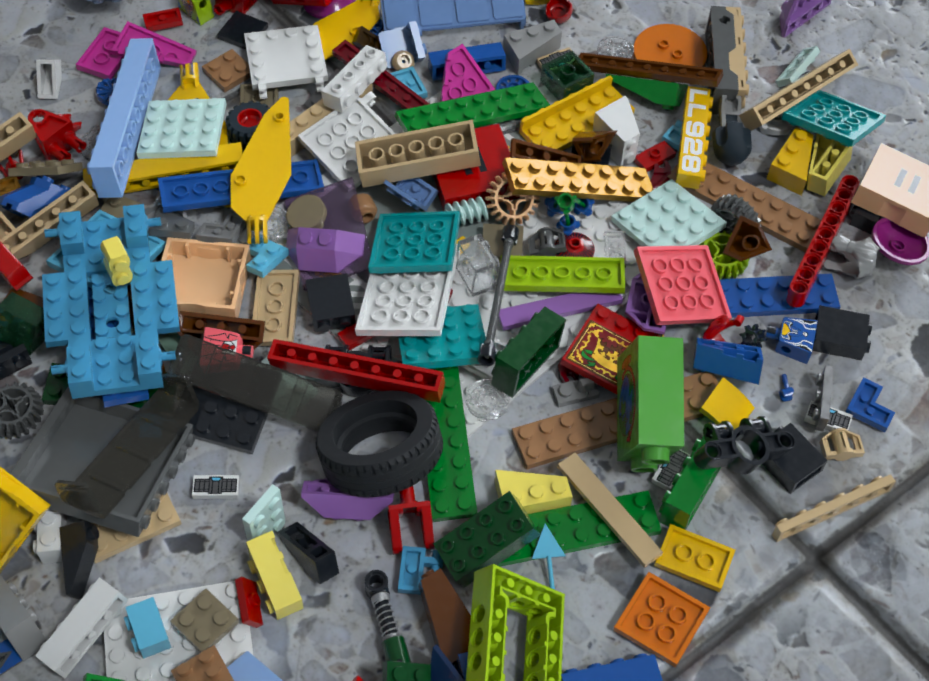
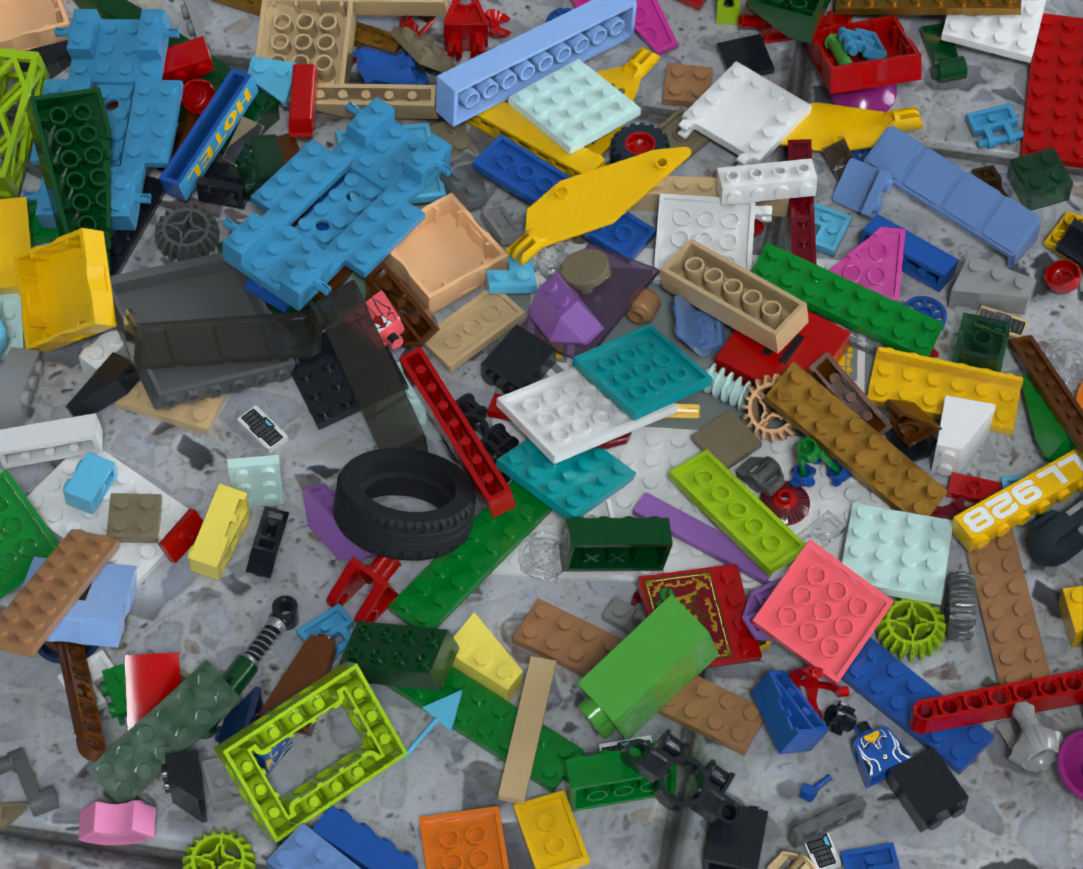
camera: 50 degrees right, 0 degrees up
(116, 261) = (368, 174): light yellow brick -> none
(402, 55) = (850, 197): tan plate -> none
(477, 264) = (670, 436): clear brick -> none
(487, 350) = (728, 440): dark grey hose -> none
(727, 404) = (735, 747): yellow slope -> none
(747, 240) = (935, 630): reddish brown slope -> none

